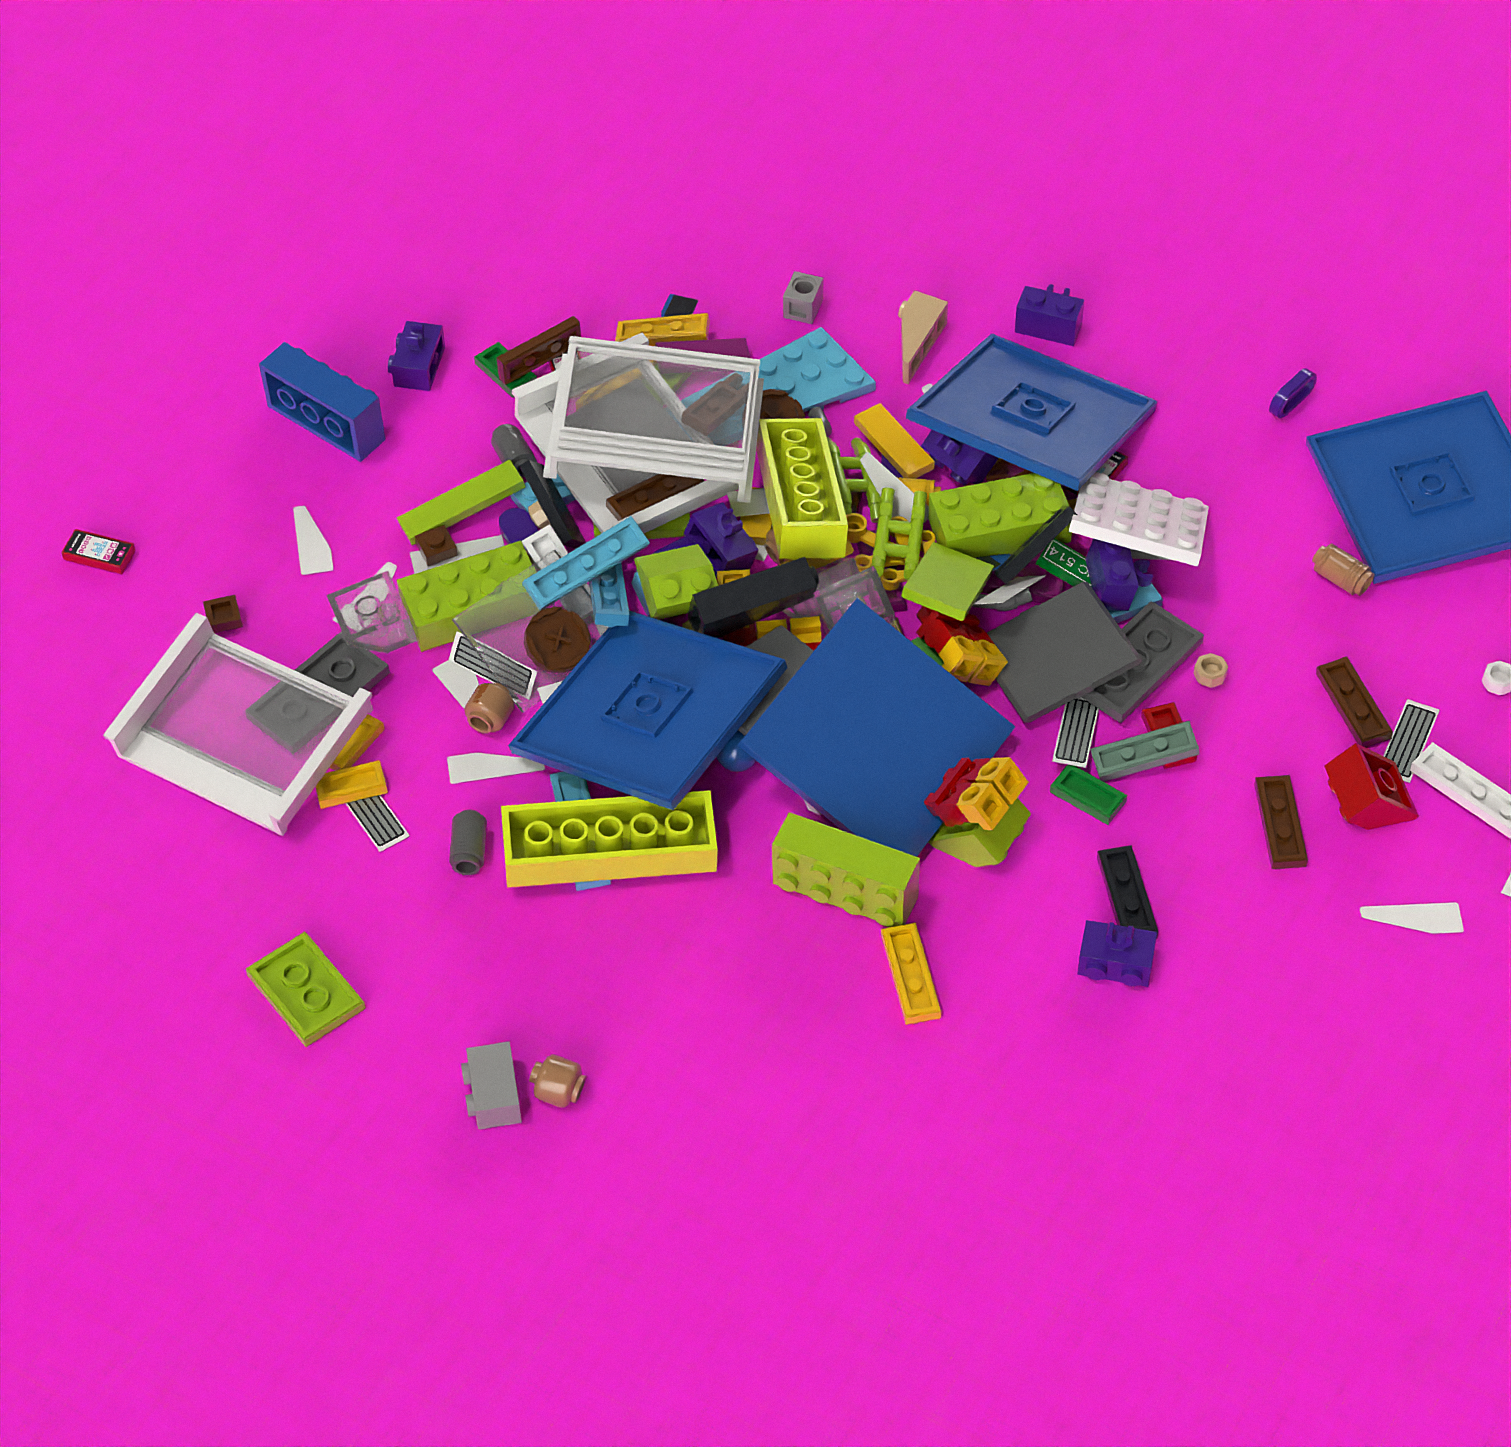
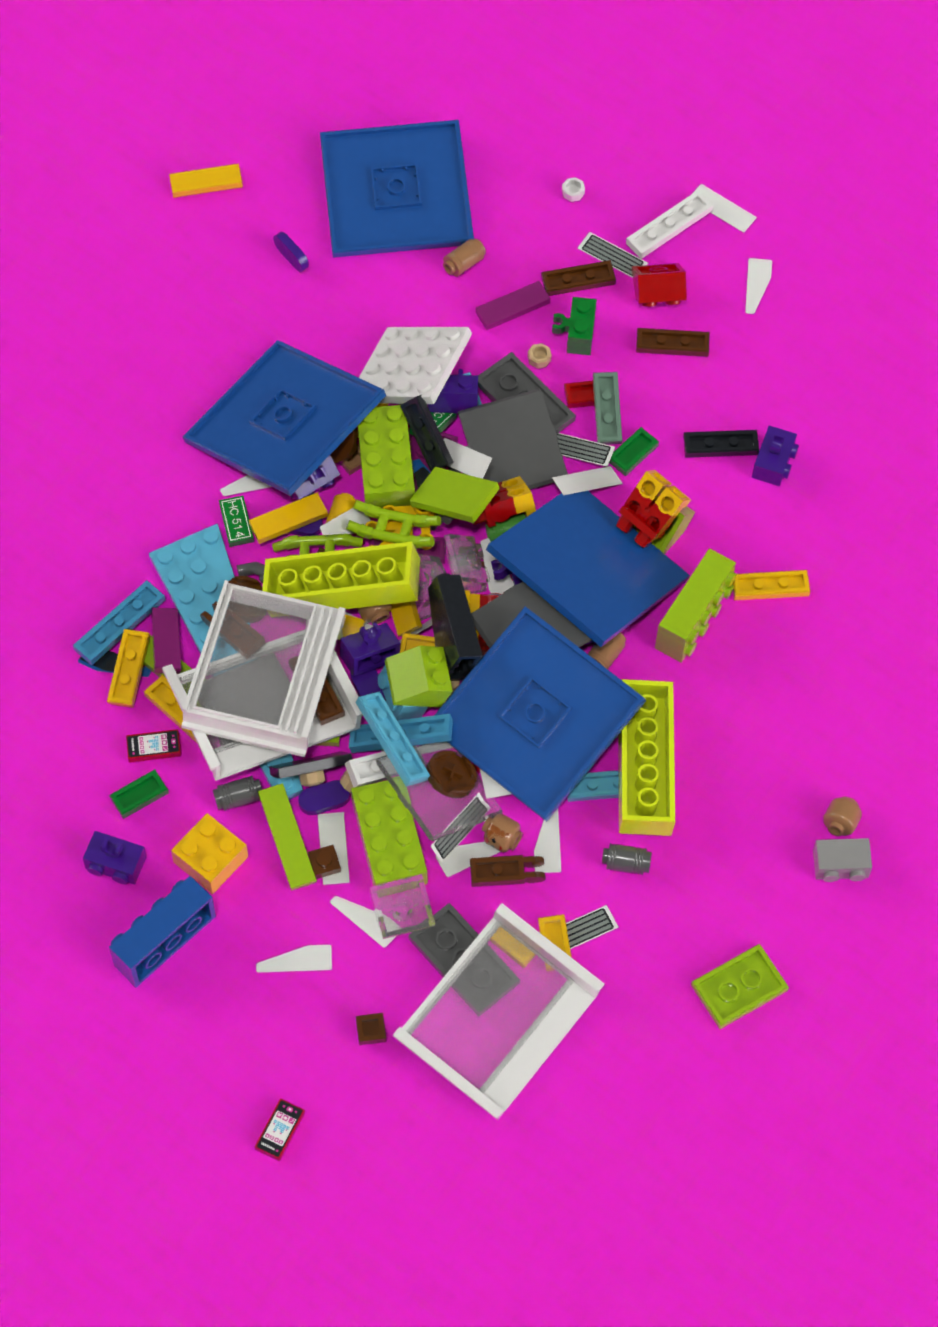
camera: 85 degrees left, 10 degrees up
(430, 434) = (209, 853): none -> yellow brick
(440, 718) = (505, 870): none -> reddish brown hinge
(537, 350) = (139, 758): reddish brown tile -> none
(723, 314) = (124, 616): none -> dark azure plate
(764, 788) = (609, 652): none -> medium nougat head
(803, 297) = (117, 569): light grey brick -> none
(894, 397) = (236, 521): none -> green tile
(921, 324) = (173, 486): tan slope -> none
(1021, 739) = (587, 480): none -> white sticker
(1049, 315) = (176, 392): dark purple brick -> none
(1268, 705) = (579, 325): none -> green brick
(1285, 634) = (512, 305): none -> magenta tile
(1379, 302) = (205, 180): none -> yellow tile

